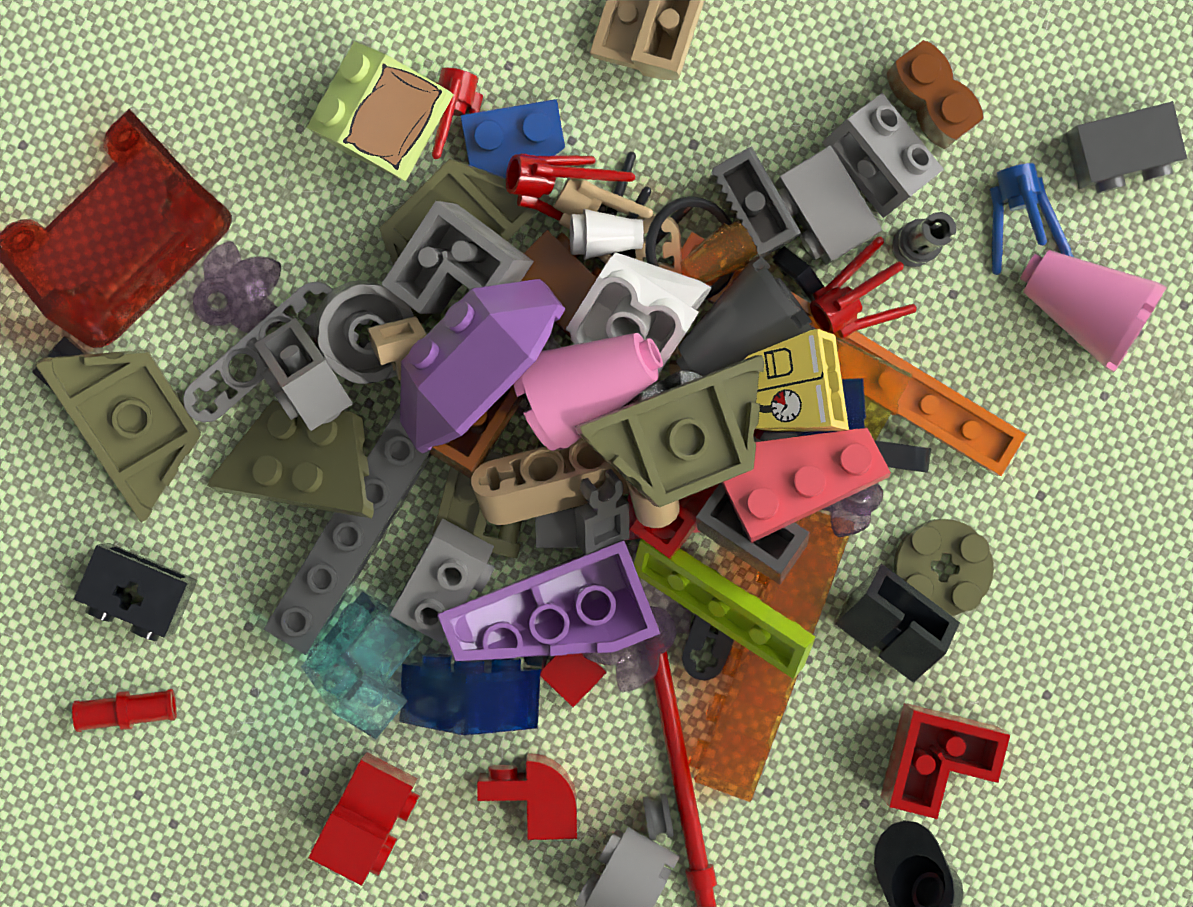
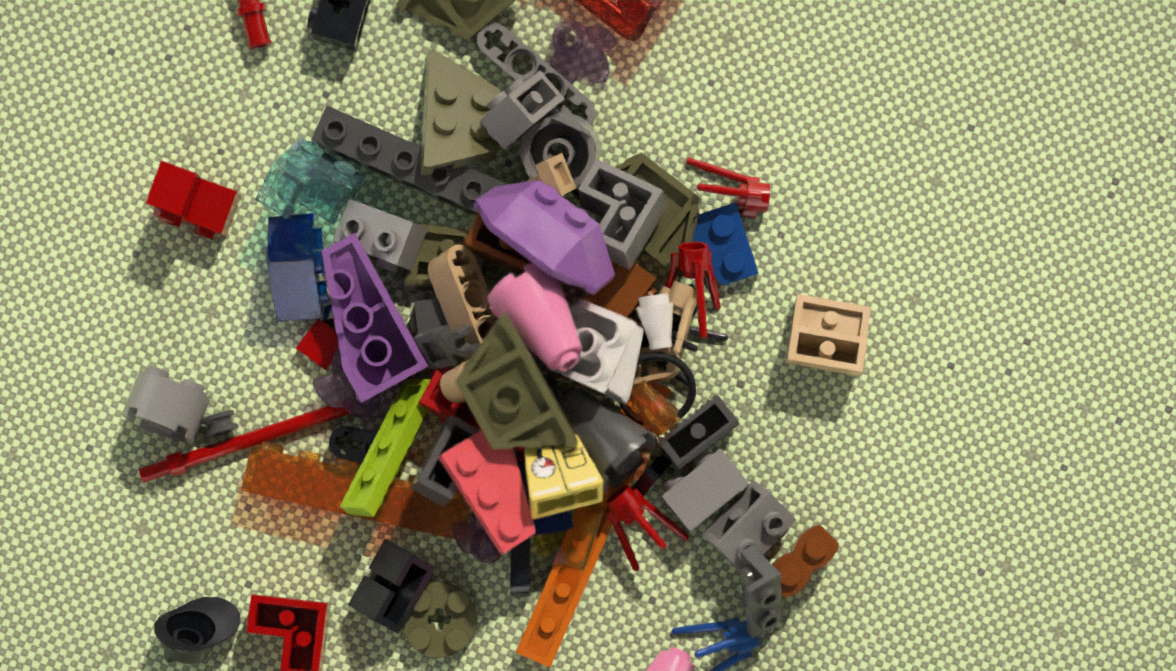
camera: 80 degrees right, 5 degrees down
(379, 111) = (728, 140): slope -> none
(548, 794) = (231, 335): red brick -> none
(924, 233) = (676, 566): dark grey pin -> none
(972, 149) = (760, 592): none -> dark grey bracket

